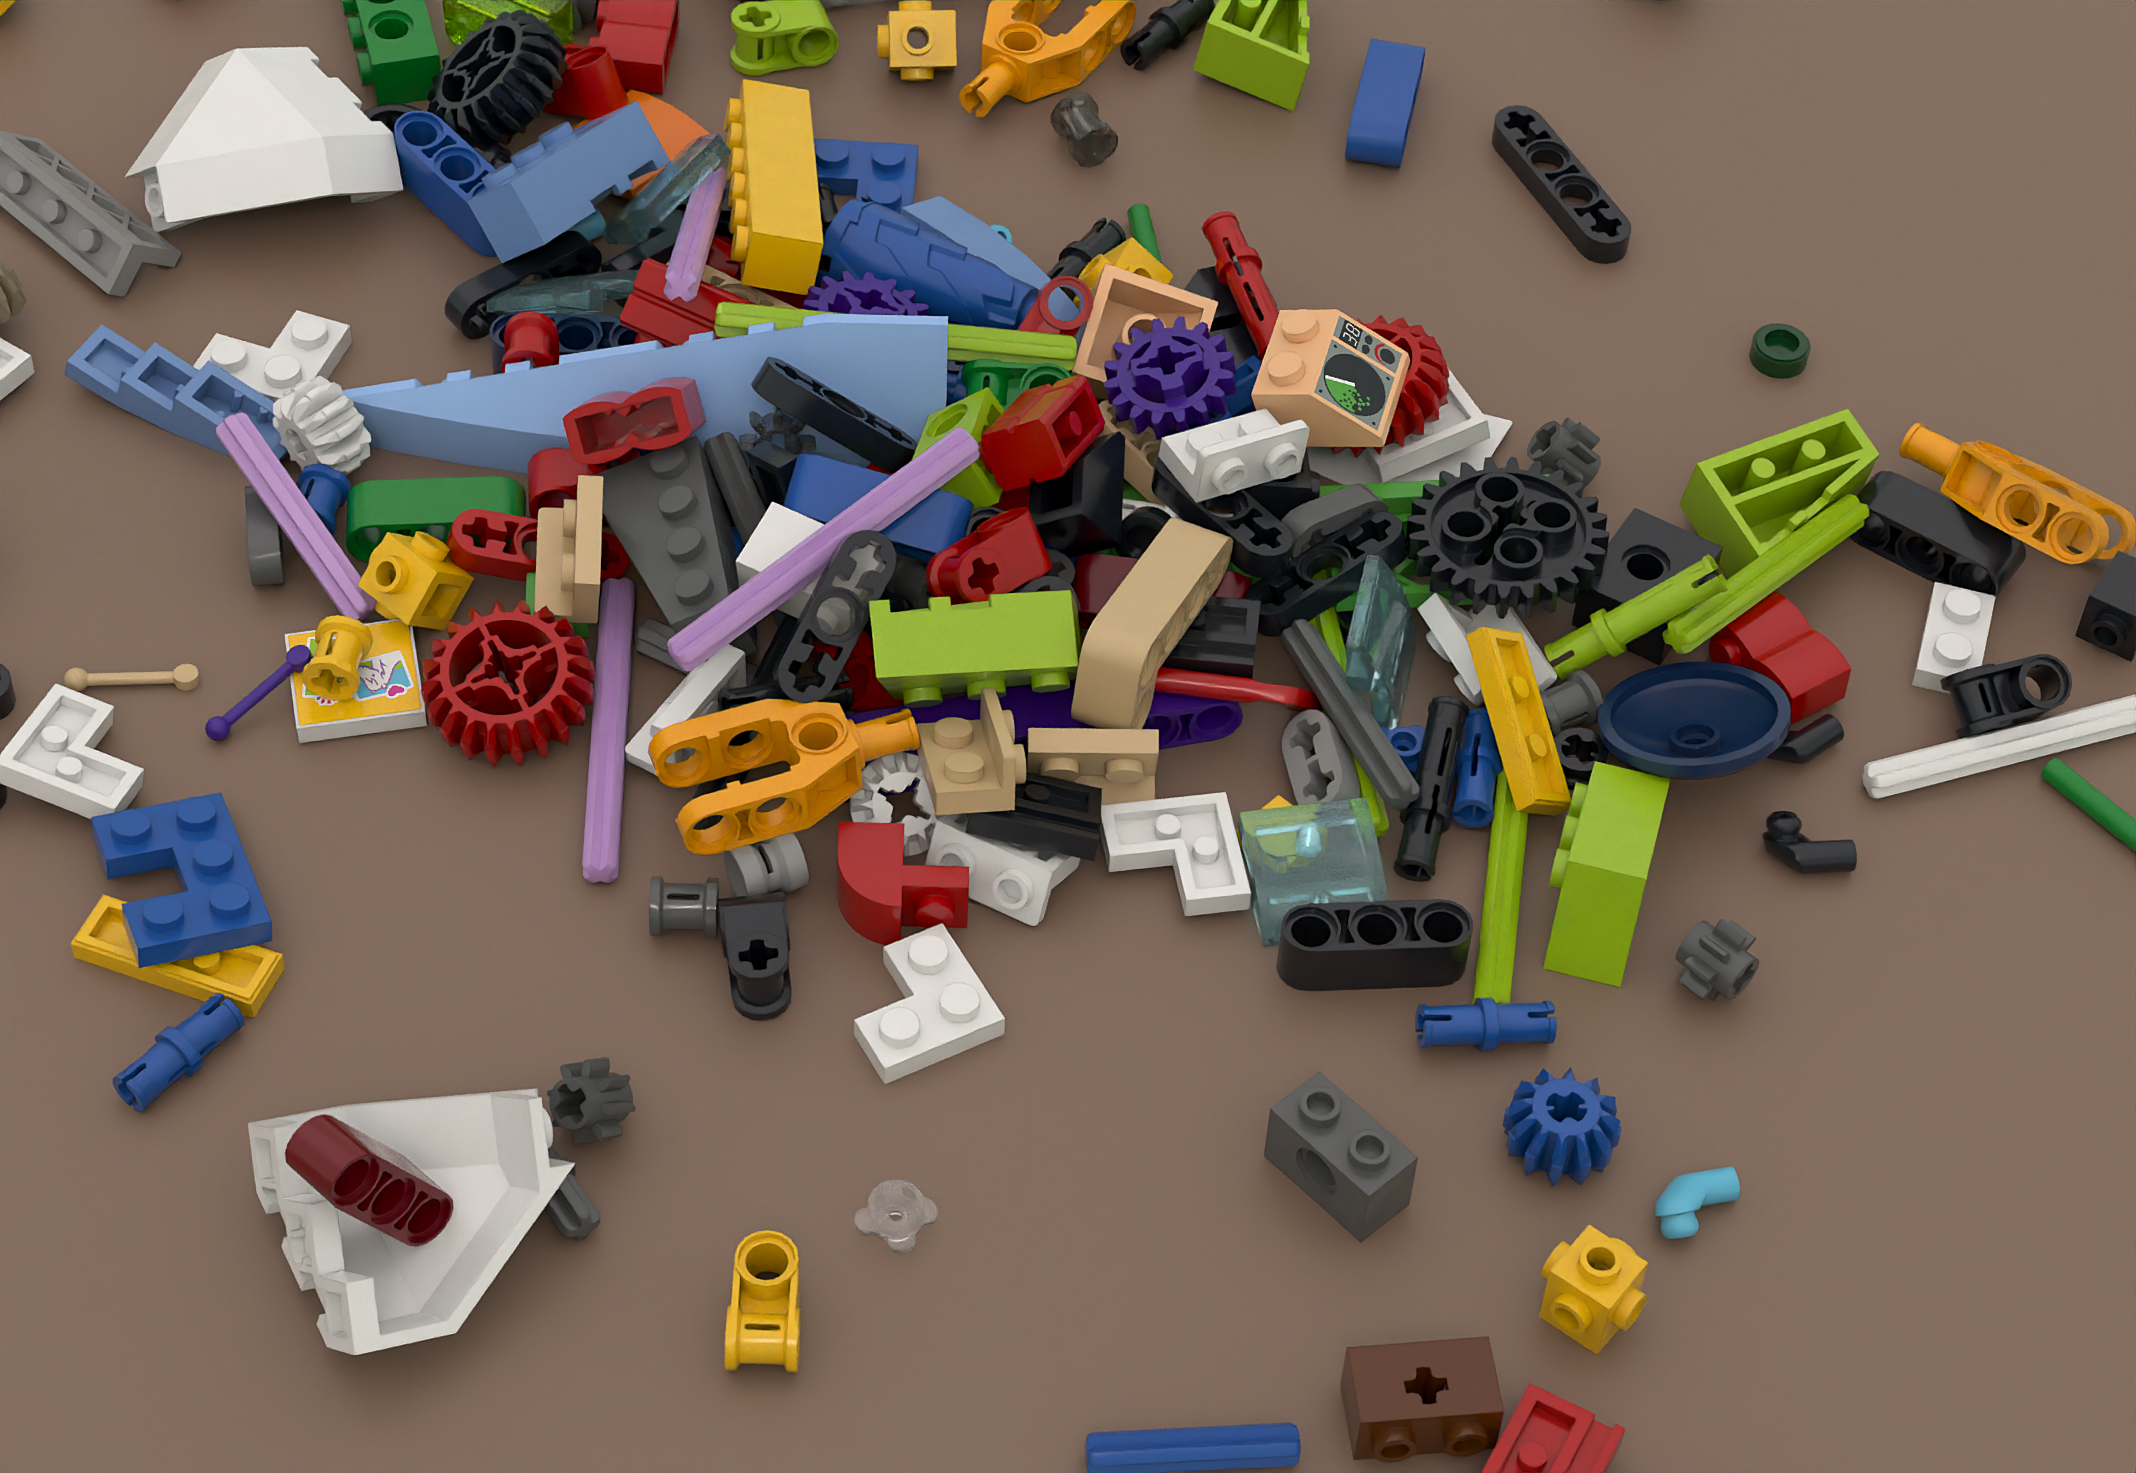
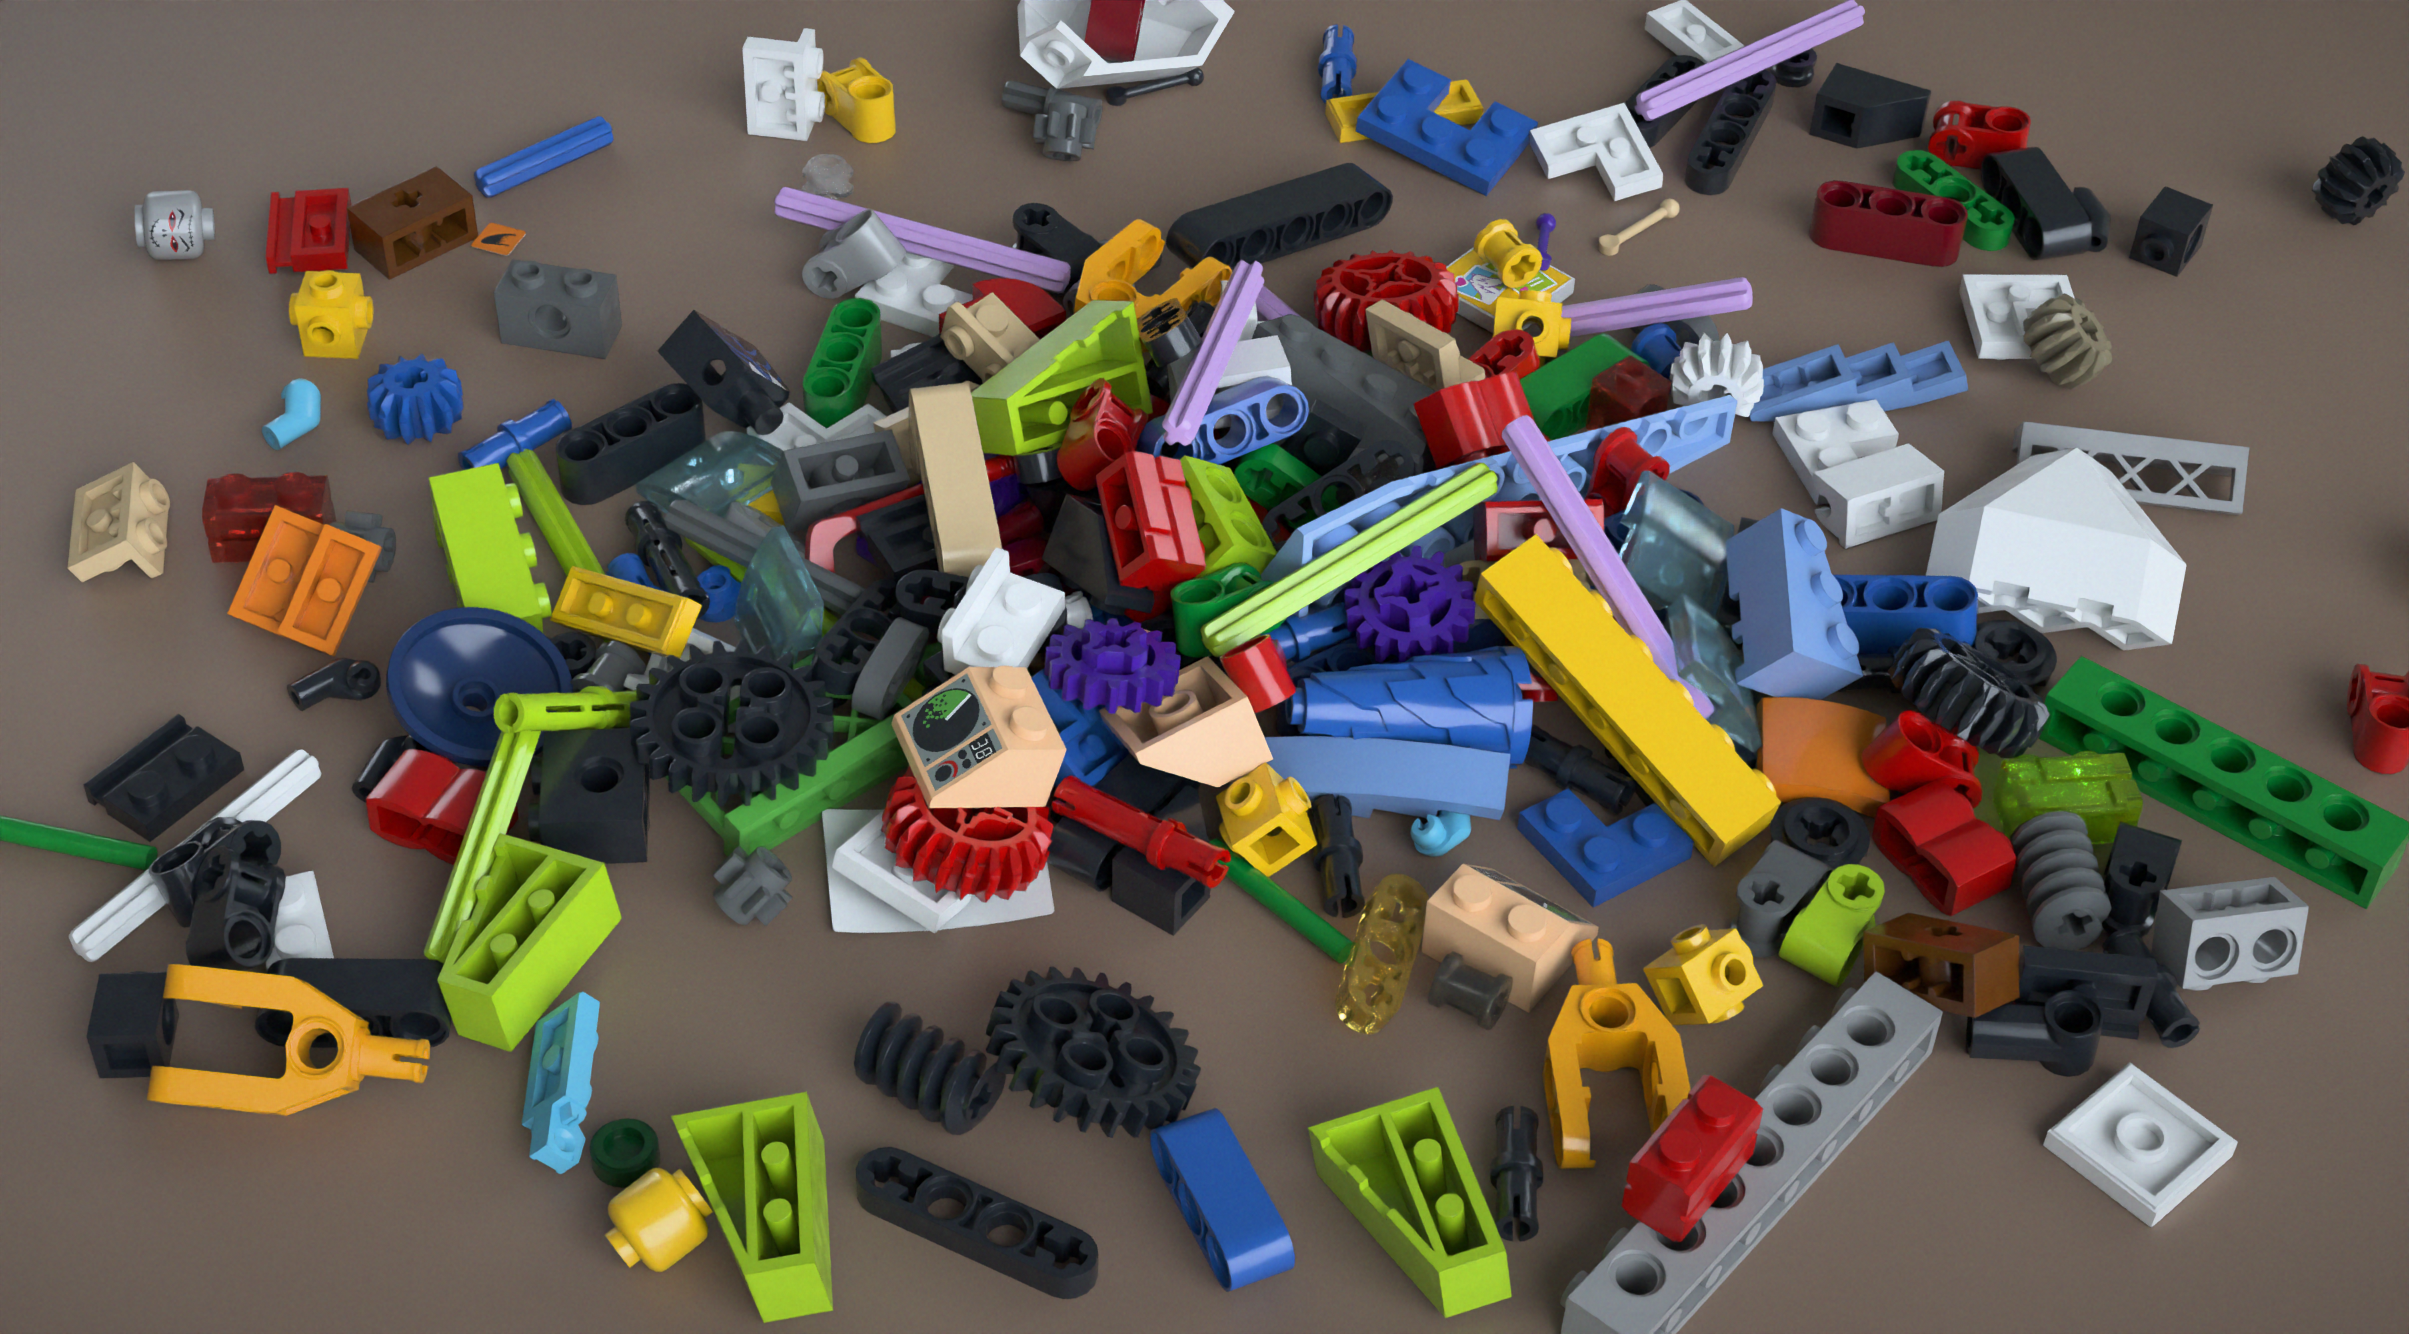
camera: 145 degrees right, 5 degrees down
(313, 283) = (1879, 495): none -> white hinge
(416, 449) = (1626, 393): none -> clear red brick
(502, 831) = (1281, 218): none -> black beam
(689, 91) = (1821, 818): none -> black gear
(798, 64) = (1774, 895): none -> dark grey piece
(862, 1311) = (783, 86): none -> white bracket
(900, 1012) = (930, 241): none -> lavender axle
(987, 1051) = (852, 256): none -> light grey piece
(1011, 148) = (1503, 930): none -> light nougat slope
(1097, 920) = (842, 362): none -> green beam
(1118, 185) = (1365, 968): none -> clear yellow beam
(1235, 931) = (747, 390): none -> black torso
(1256, 722) = (837, 477): none -> dark grey brick
(1317, 1363) = (498, 239): none -> orange sticker
(1441, 204) = (1092, 1051): none -> black gear
(1528, 262) = (925, 1071): none -> black piece
(1710, 235) = (769, 1196): none -> lime wedge
(1790, 273) = (658, 1219): none -> yellow head
(1792, 1040) = (240, 507): none -> clear red brick
(1794, 930) = (304, 581): none -> orange slope
(1806, 392) = (561, 1081): none -> medium azure hinge
(1948, 1132) = (119, 521): none -> tan bracket
(2006, 625) = (234, 909): none -> black piece
(2006, 841) = (164, 777): none -> black plate

